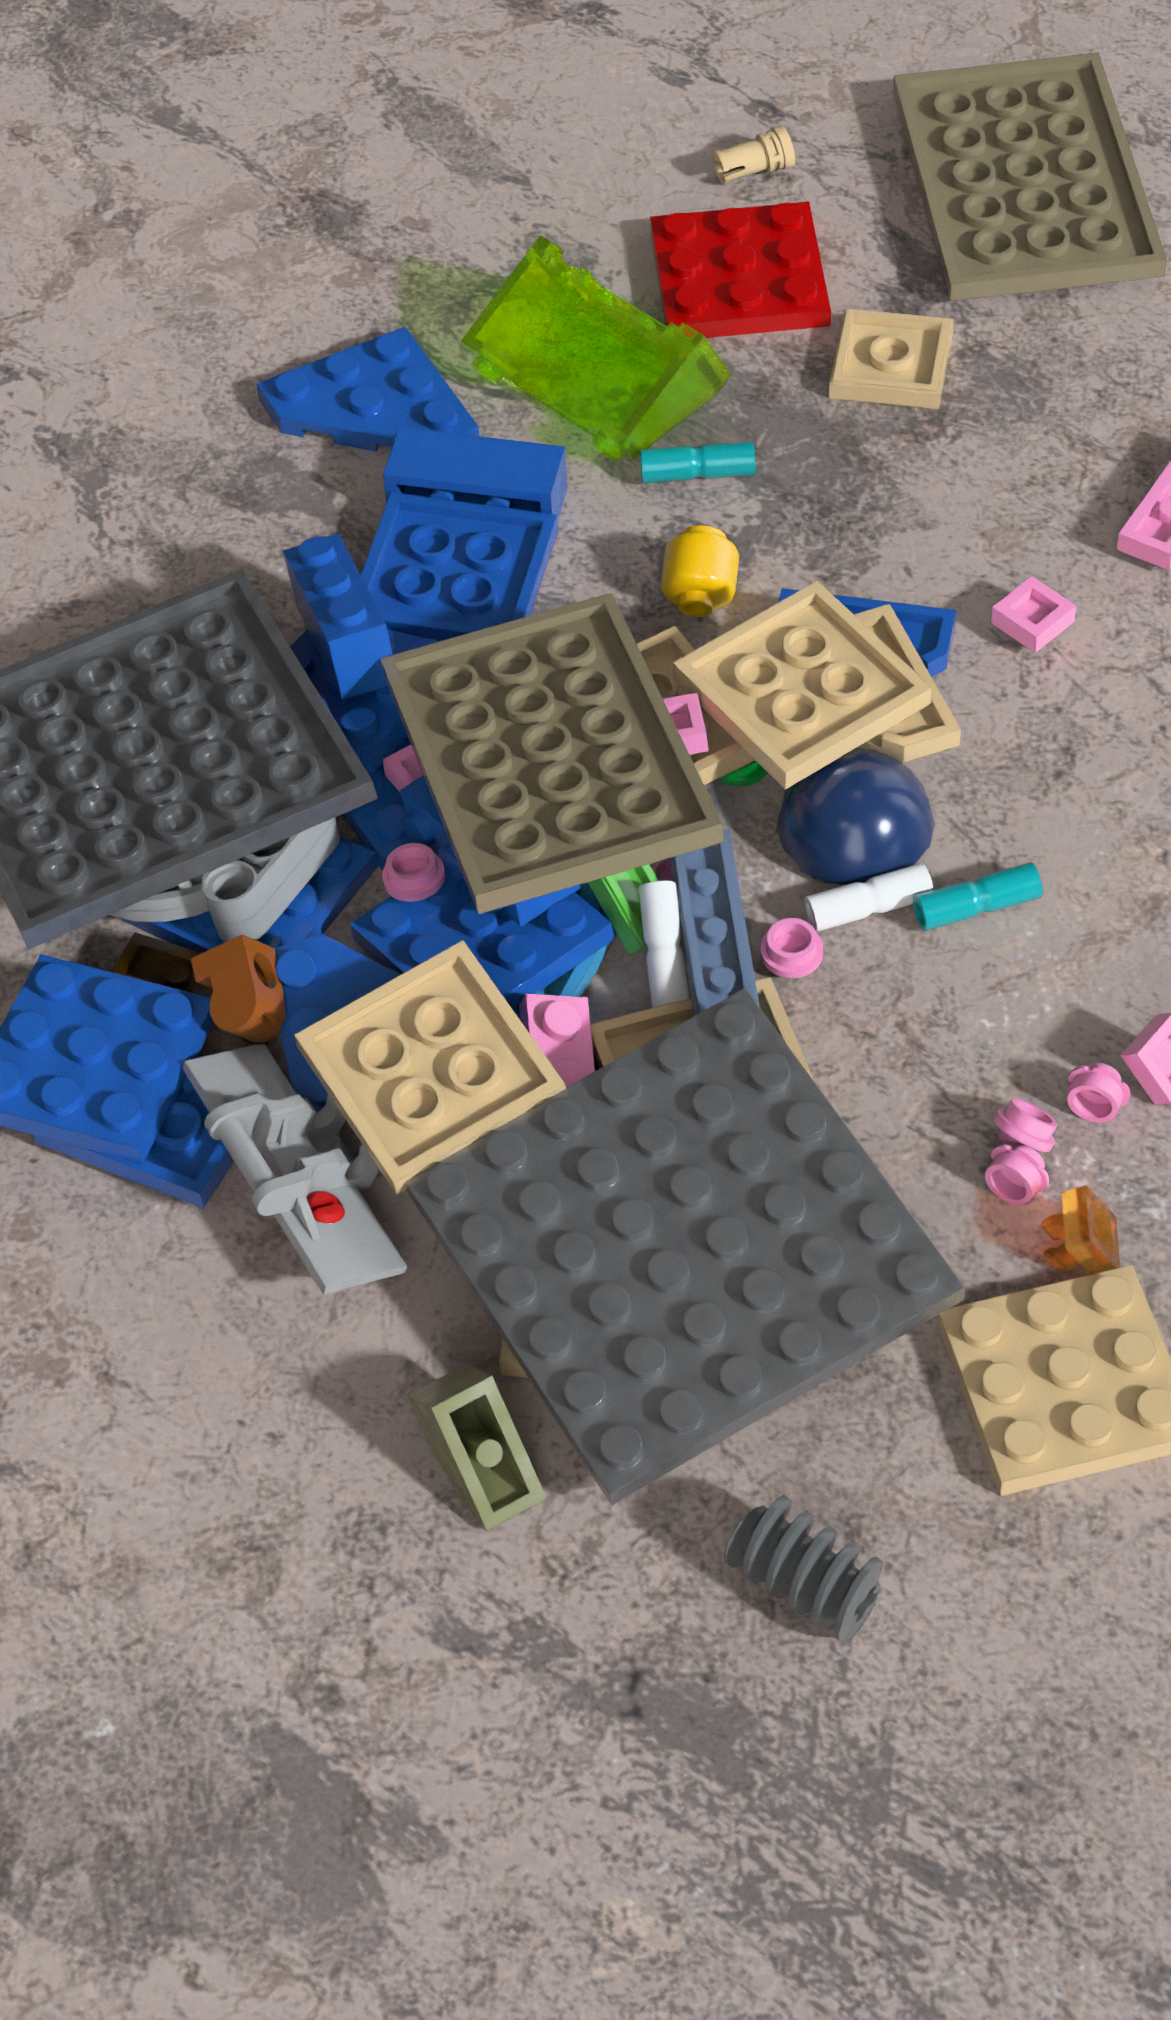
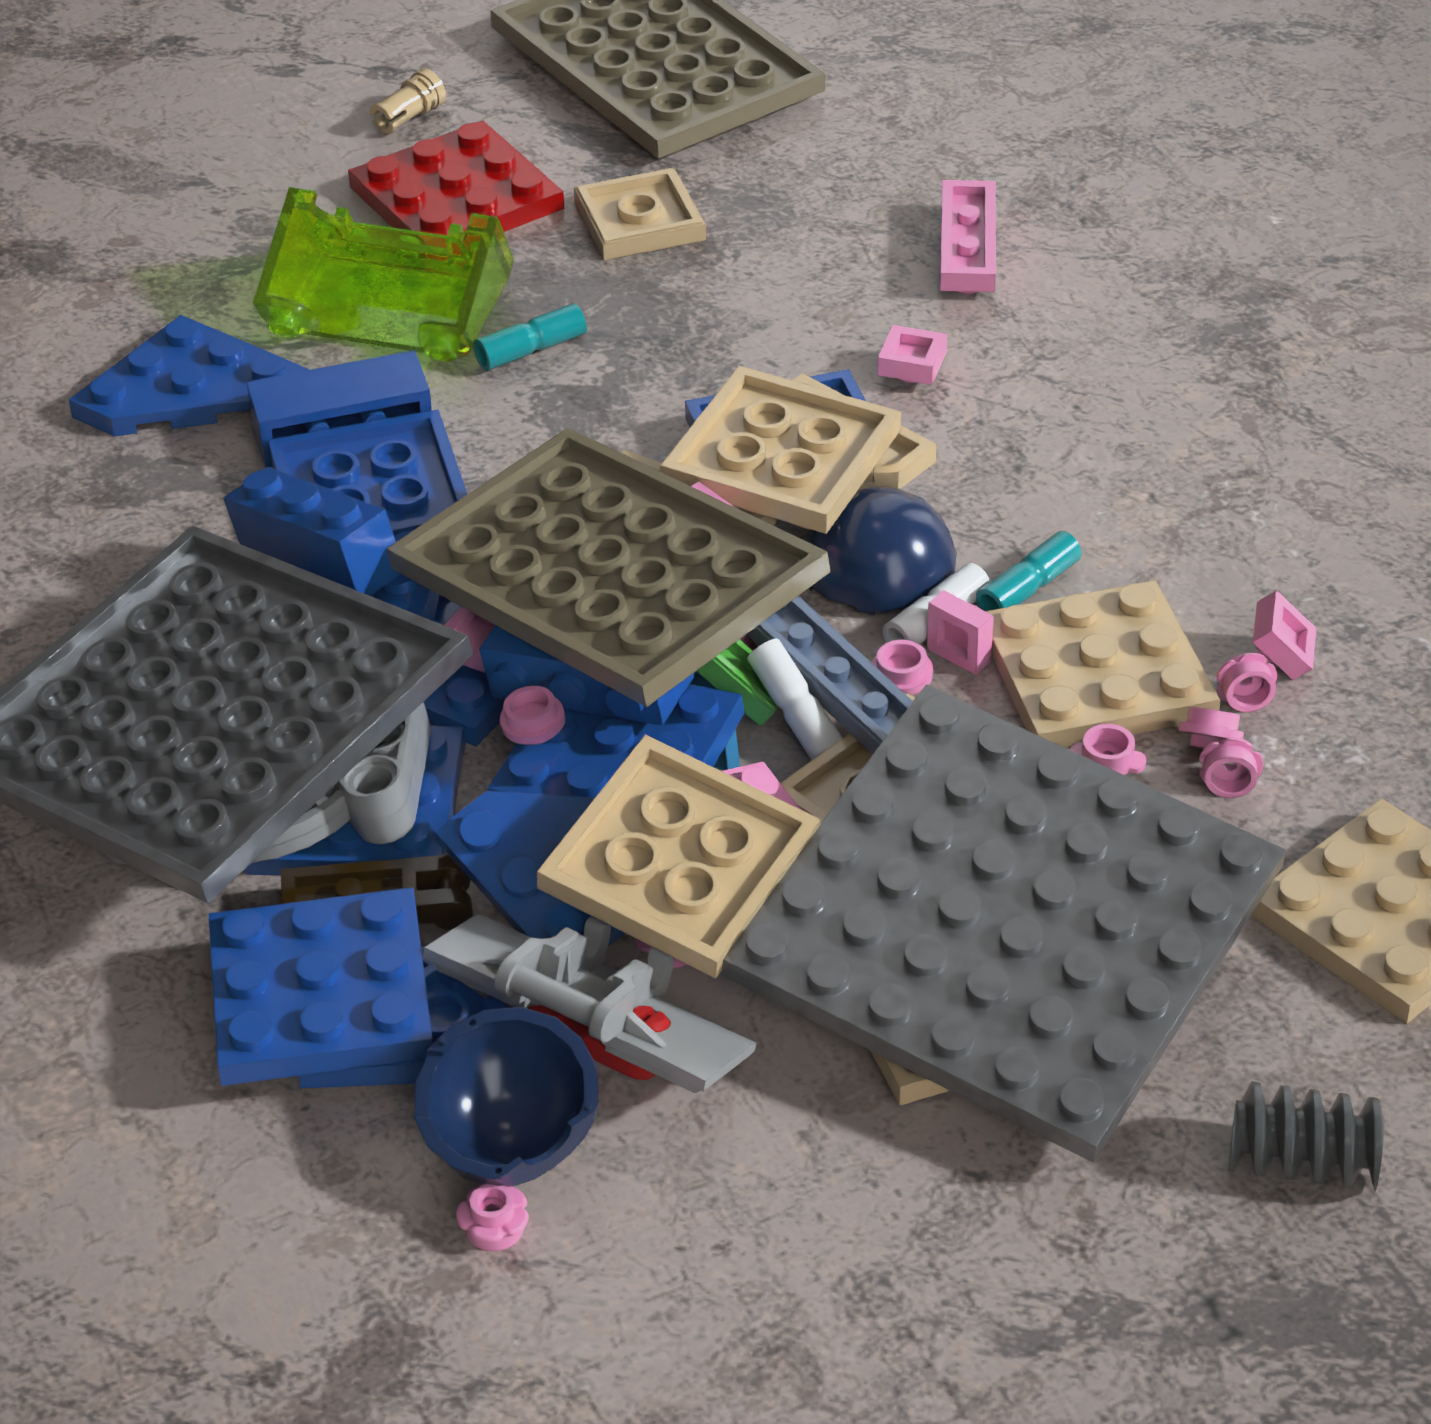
camera: 30 degrees left, 10 degrees down
(108, 1340) = (493, 1229): none -> bright pink plate
(159, 1229) = (506, 1095): none -> dark blue cylinder
(245, 988) = (442, 864): dark orange leg -> none
(477, 1444) = (931, 1161): olive slope -> none
(699, 570) = (601, 407): yellow head -> none
(866, 932) = (960, 632): none -> bright pink plate
(920, 1100) = (1111, 747): none -> bright pink plate
(976, 1016) = (1099, 662): none -> tan plate
(1088, 1233) = (1324, 786): clear orange tile -> none

